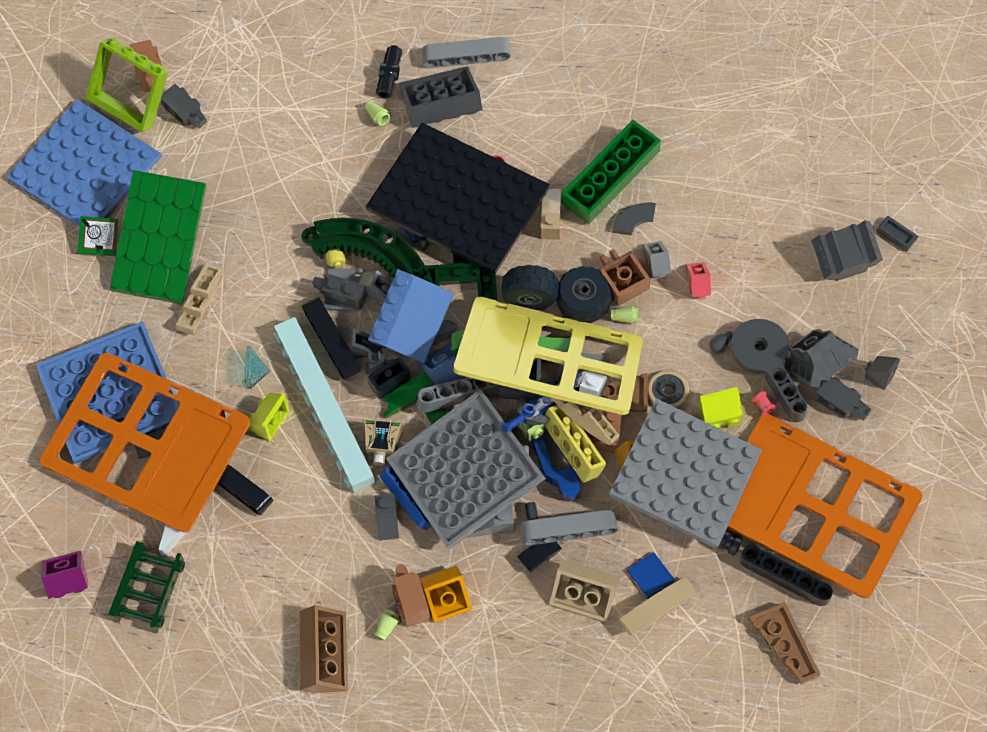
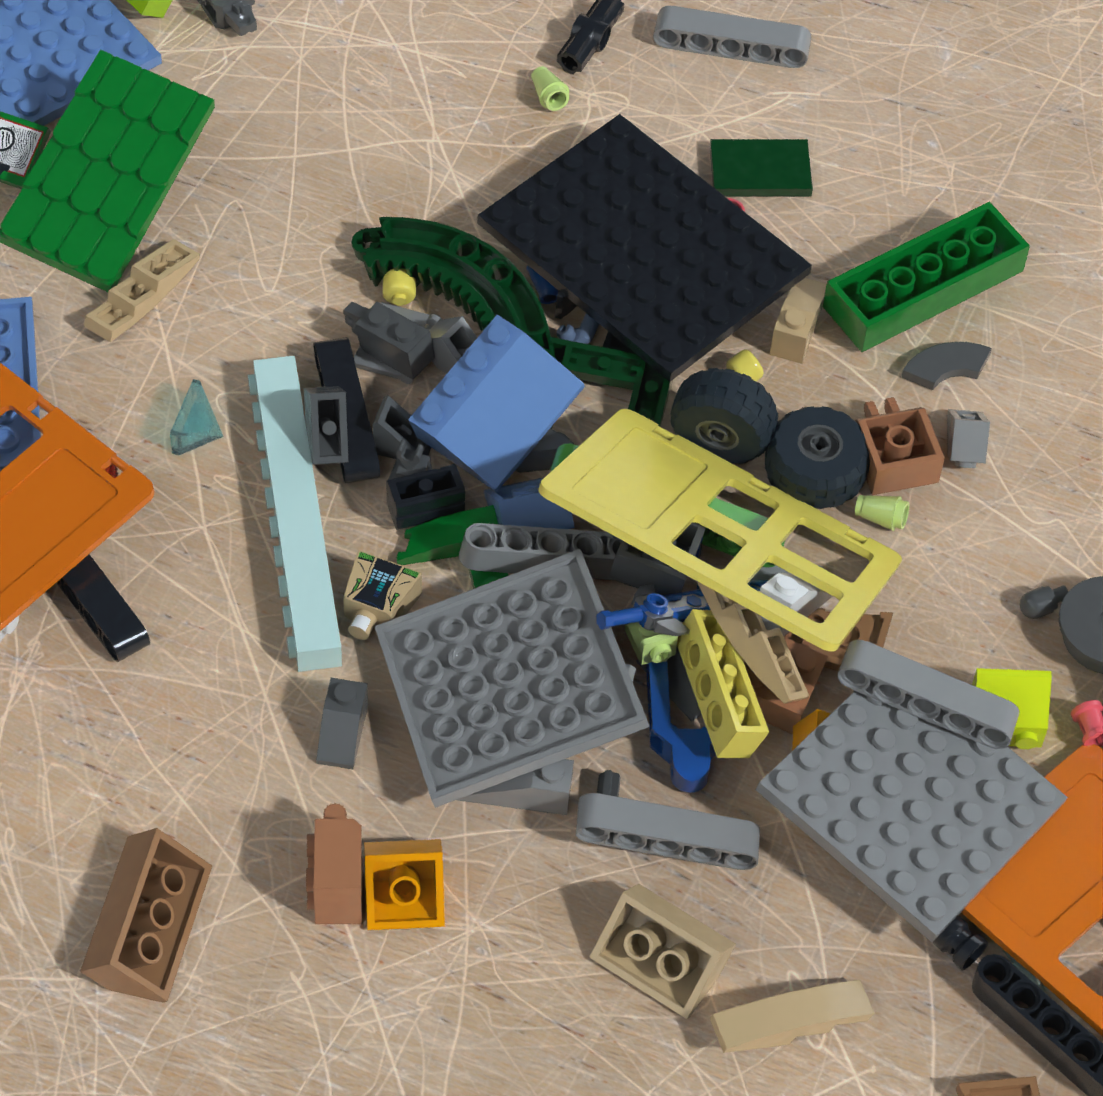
camera: 10 degrees right, 10 degrees down
(269, 415) = (193, 502): neon yellow slope -> none
(325, 353) = (326, 424): none -> dark grey slope
(387, 622) = (278, 904): yellowish green cone -> none
(400, 492) = (382, 693): blue beam -> none
(438, 258) = (583, 334): none -> sand blue arm
(441, 96) = (667, 91): dark grey slope -> none
(504, 128) = (761, 167): none -> dark green tile
(530, 253) = (746, 363): none -> light yellow piece
(537, 554) = (595, 863): black slope -> none
(650, 575) = (795, 959): blue piece -> none
(672, 379) = (931, 637): dark grey wheel -> none
(679, 418) = (928, 694): none -> light grey beam
(698, 280) = (1032, 490): coral slope -> none

